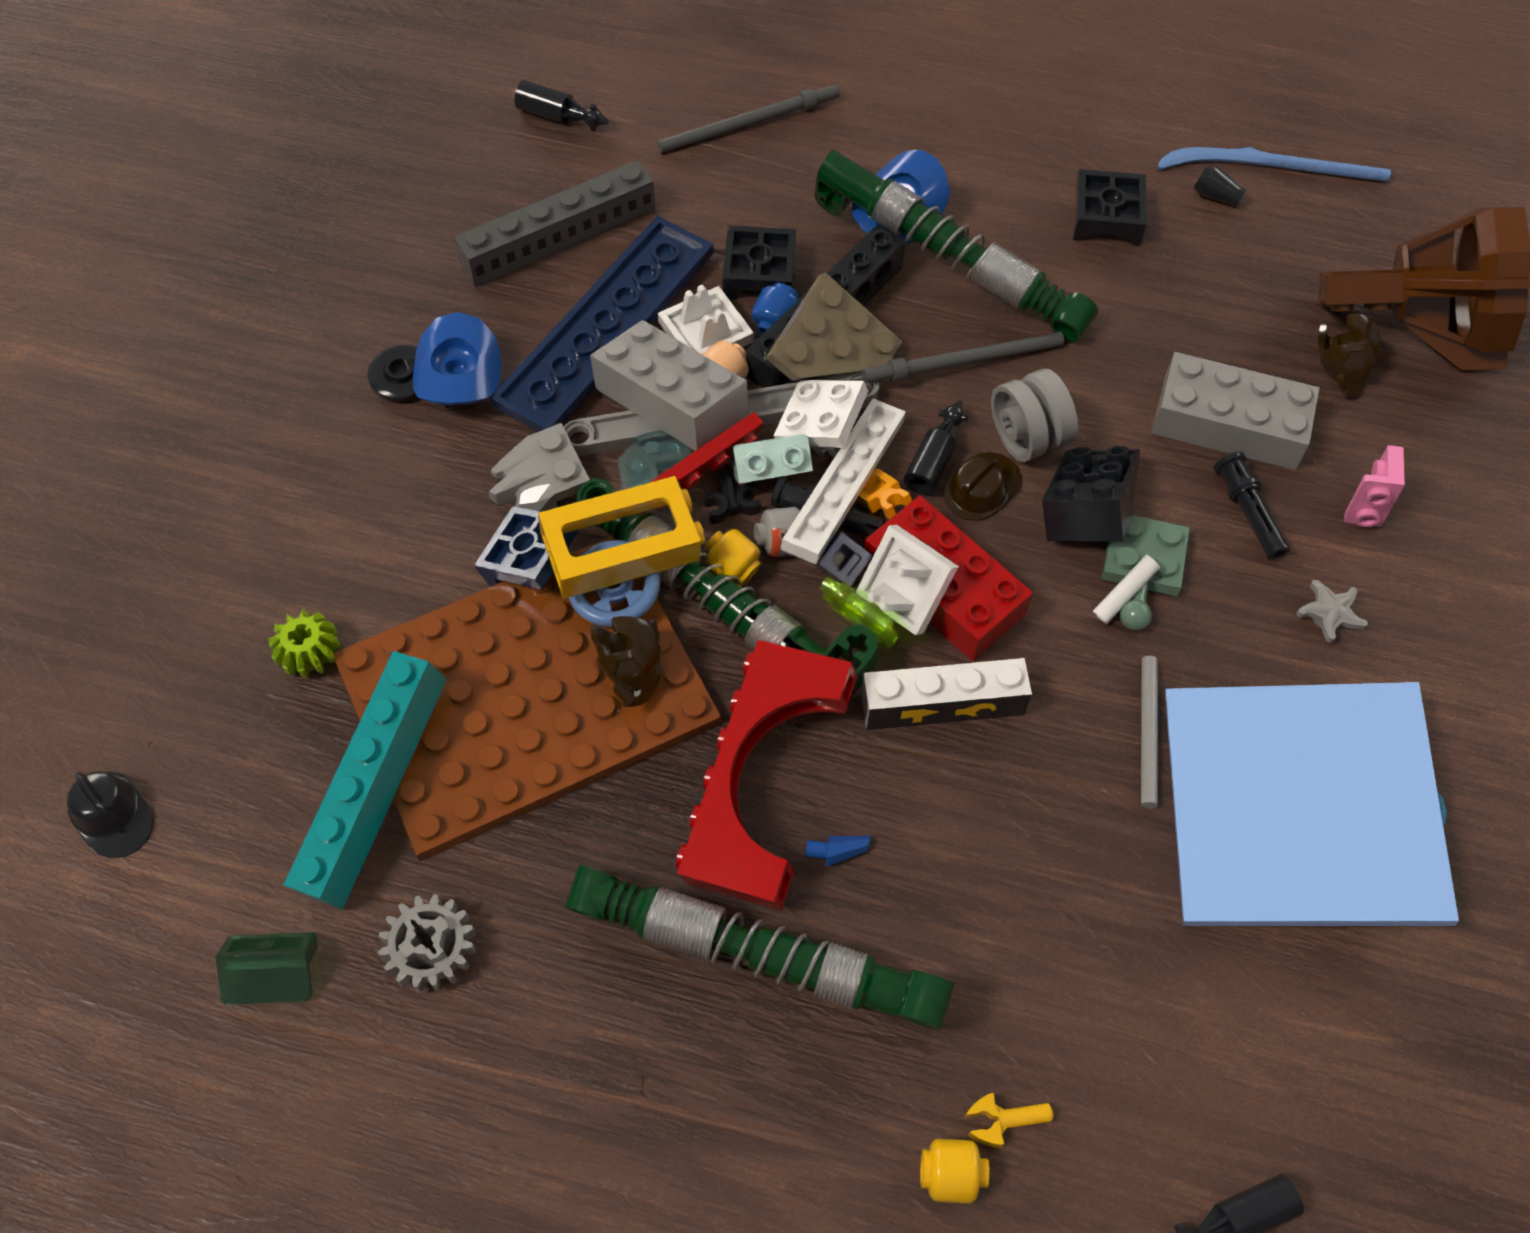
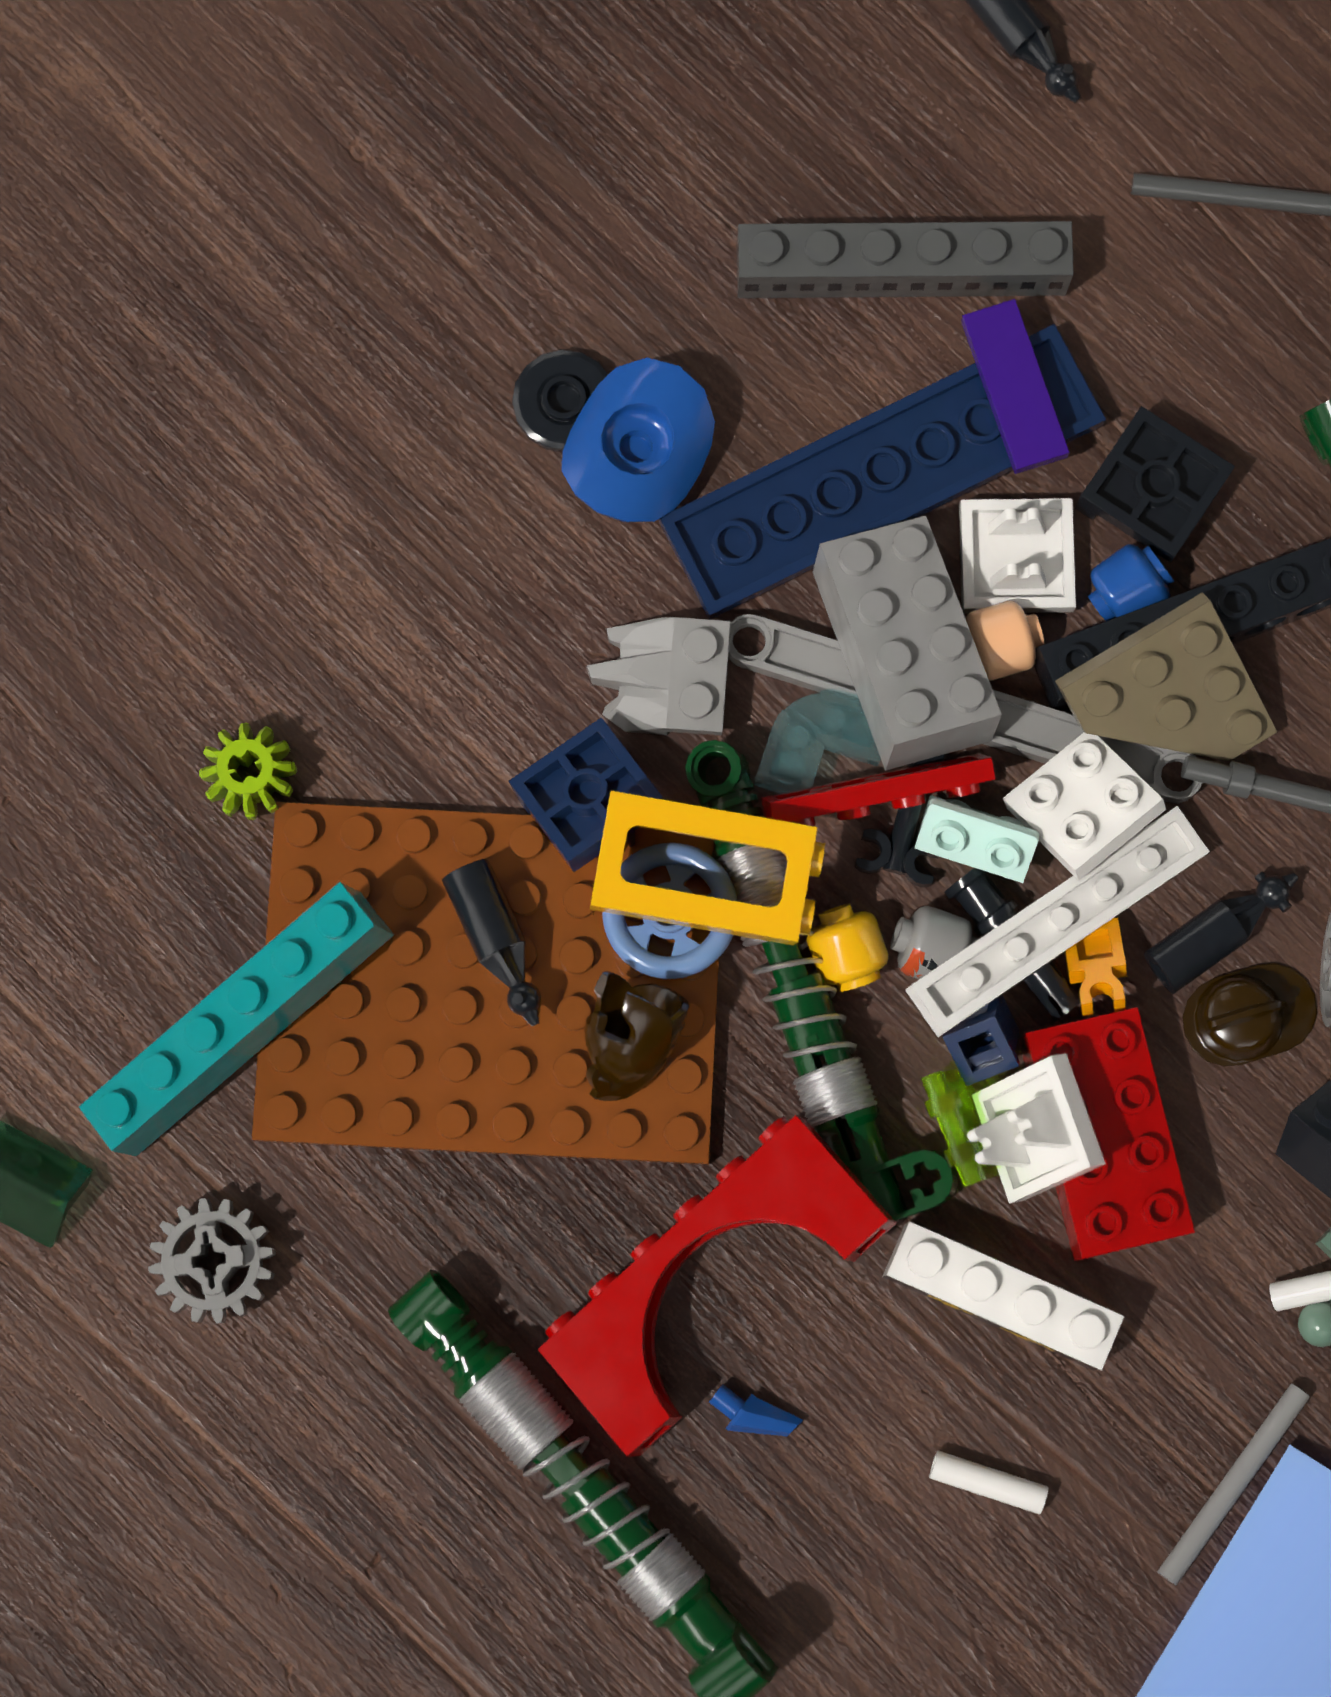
camera: 30 degrees right, 20 degrees up
(509, 646) = (493, 932): none -> black wheel
(654, 247) = (1014, 386): none -> dark purple tile
(1007, 808) = (988, 1482): none -> white piece

